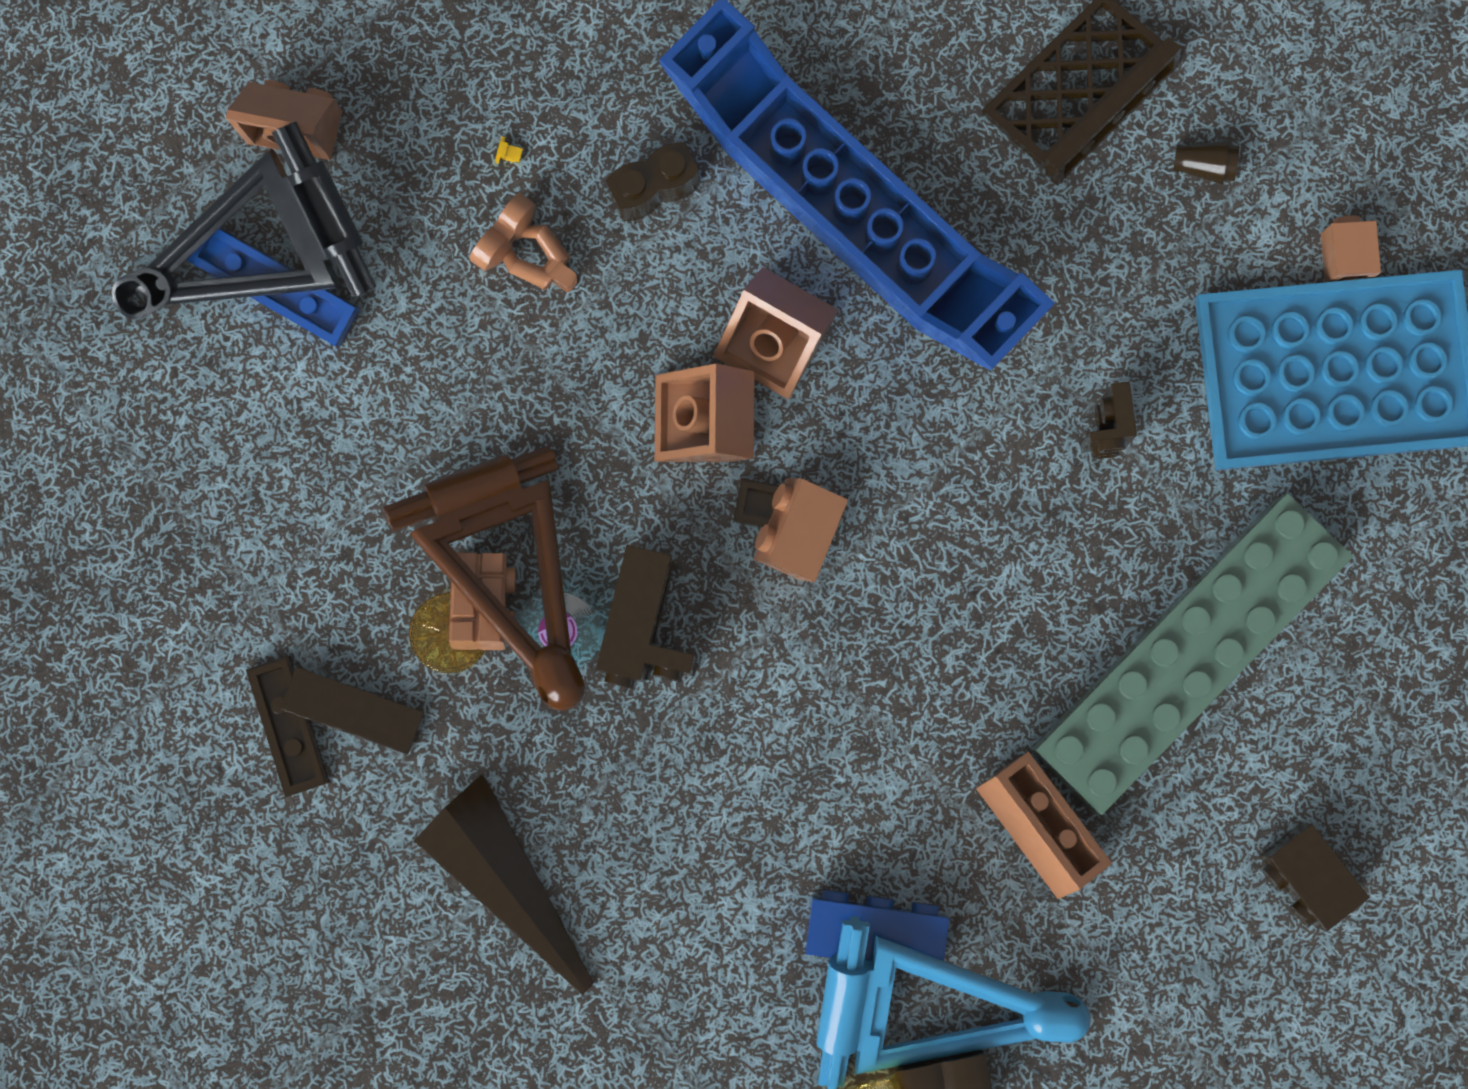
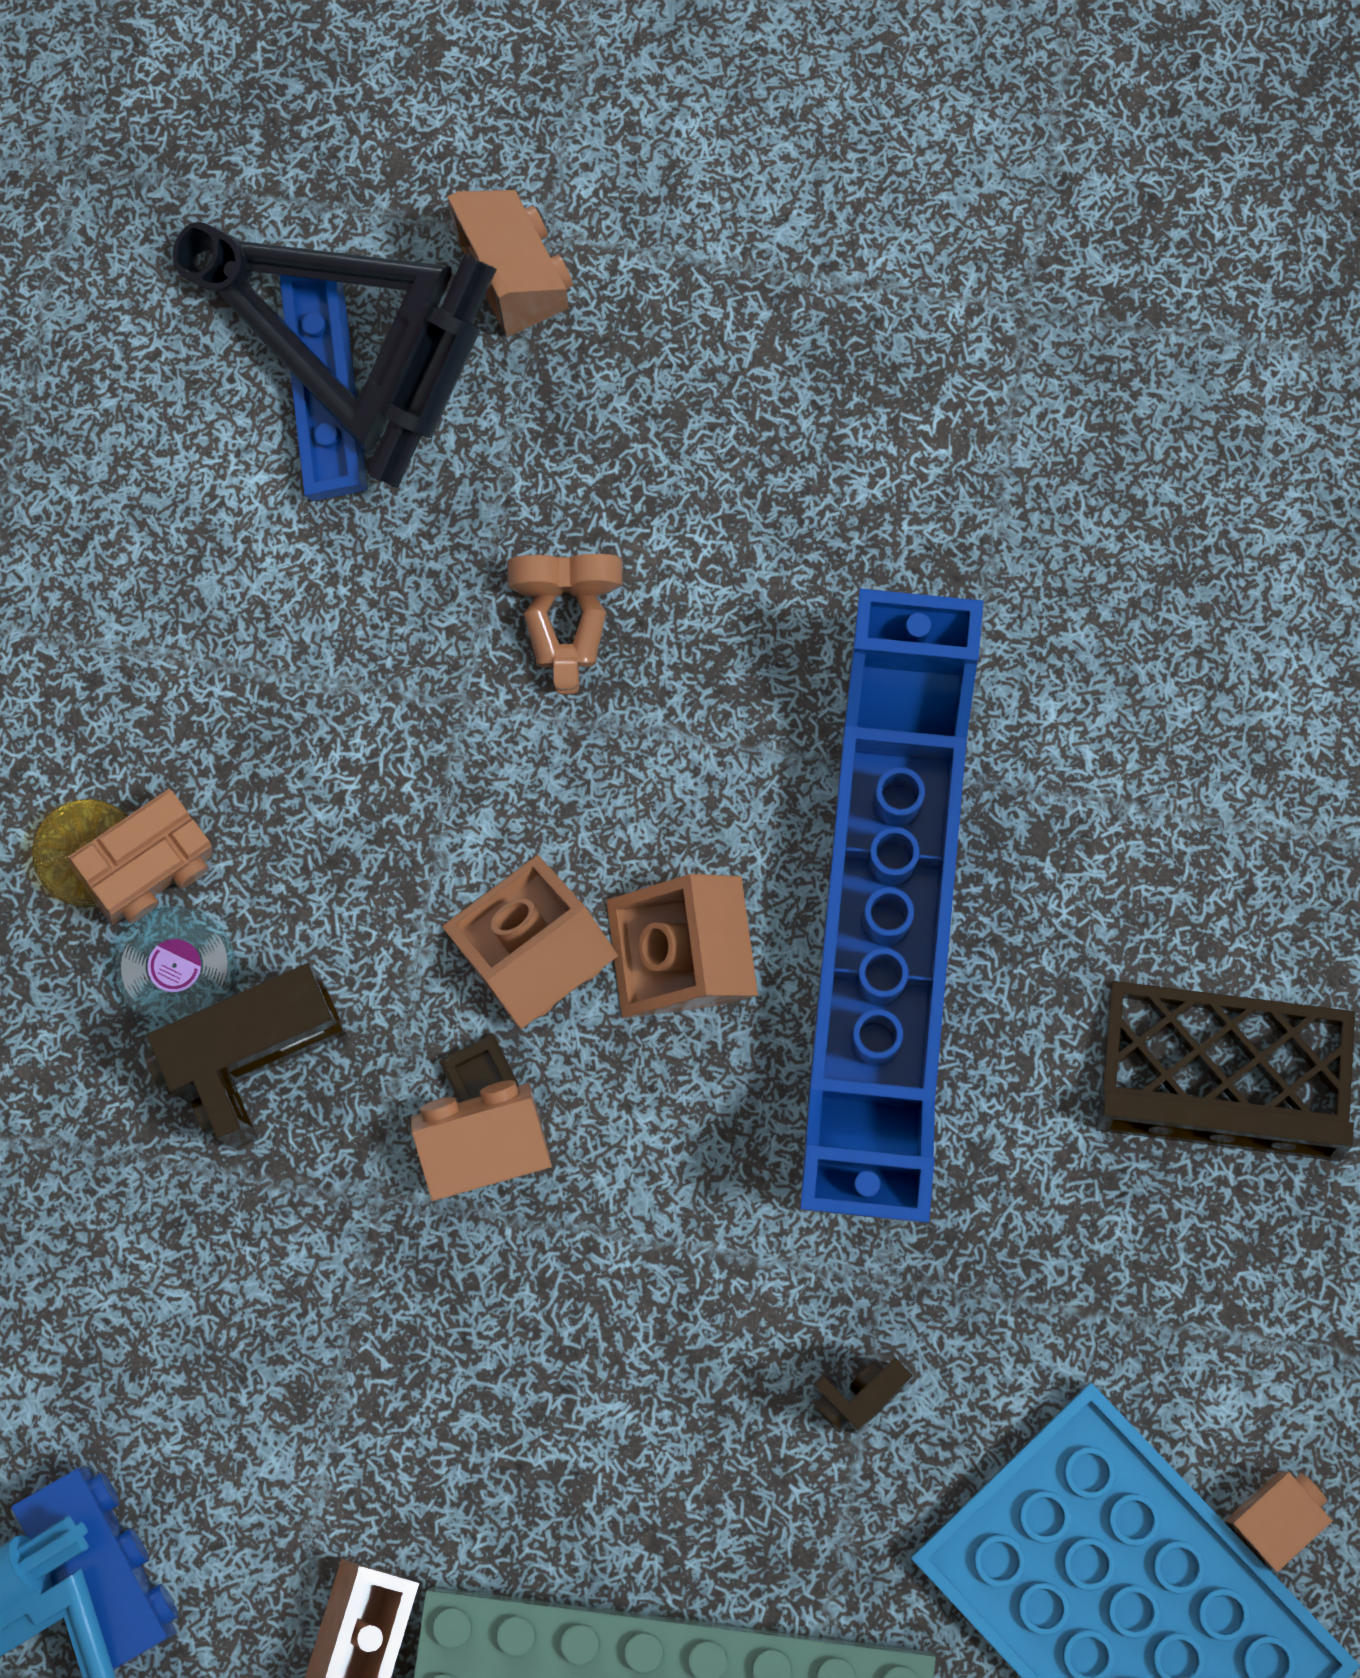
camera: 50 degrees right, 5 degrees down
(483, 499) = (245, 771): reddish brown piece -> none
(508, 152) = (659, 511): yellow piece -> none
(664, 177) = (728, 682): dark brown brick -> none
(1208, 161) = (1256, 1279): dark brown cone -> none

